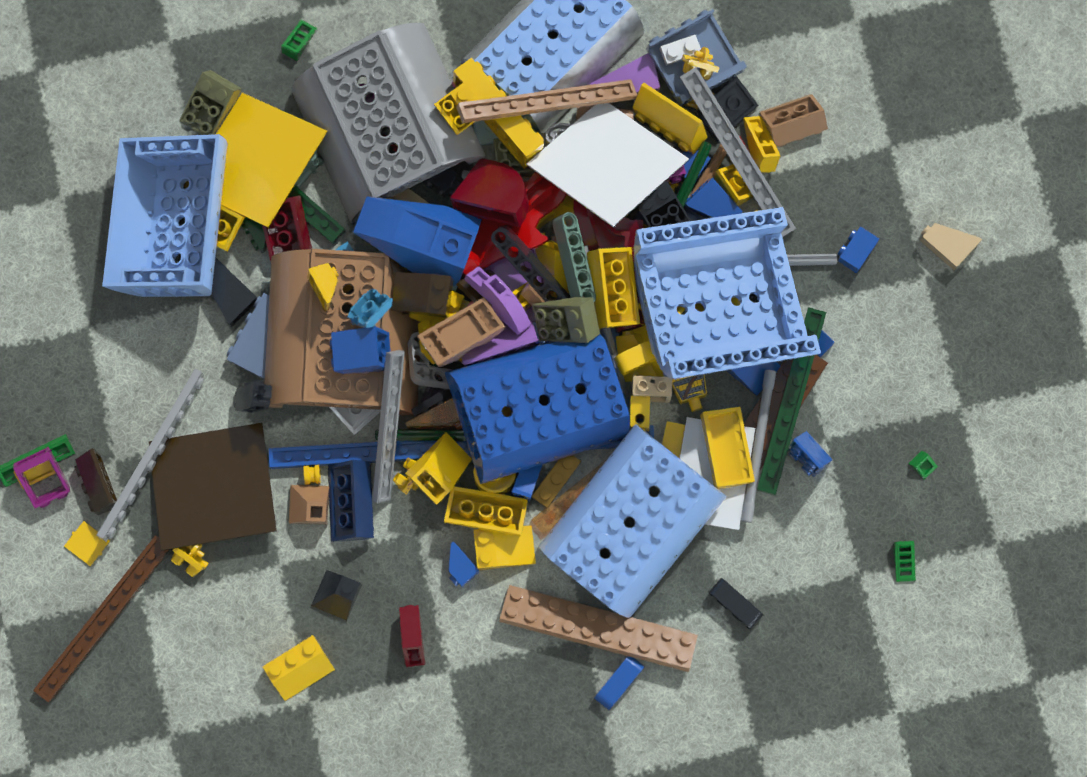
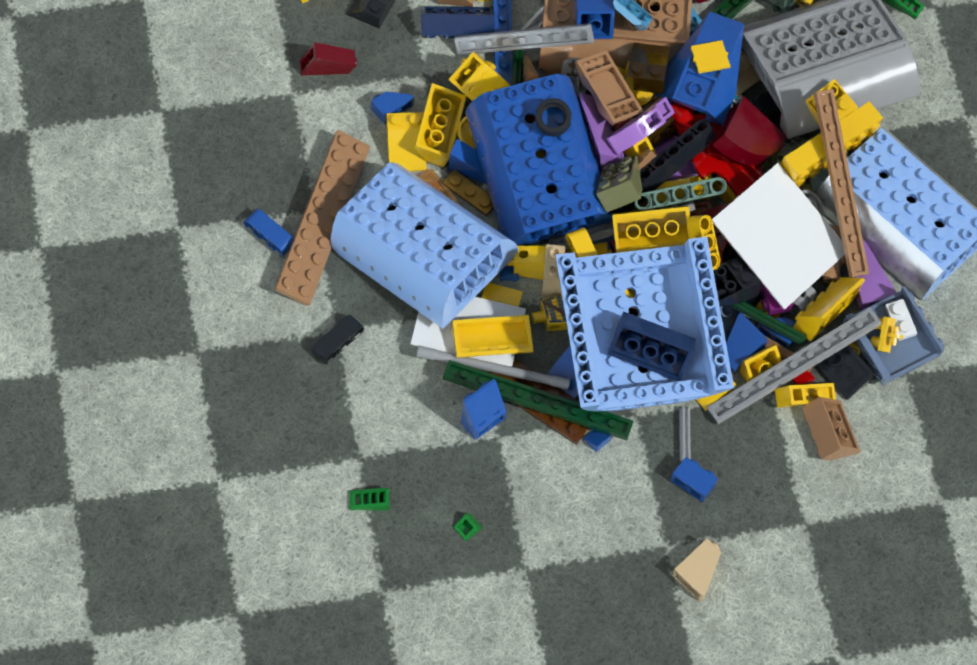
camera: 85 degrees right, 15 degrees down
(416, 229) = (710, 57): none -> yellow piece
(512, 371) = (556, 103): none -> black tyre
(623, 236) = (703, 226): none -> yellow beam
(740, 287) = (651, 346): none -> dark blue slope

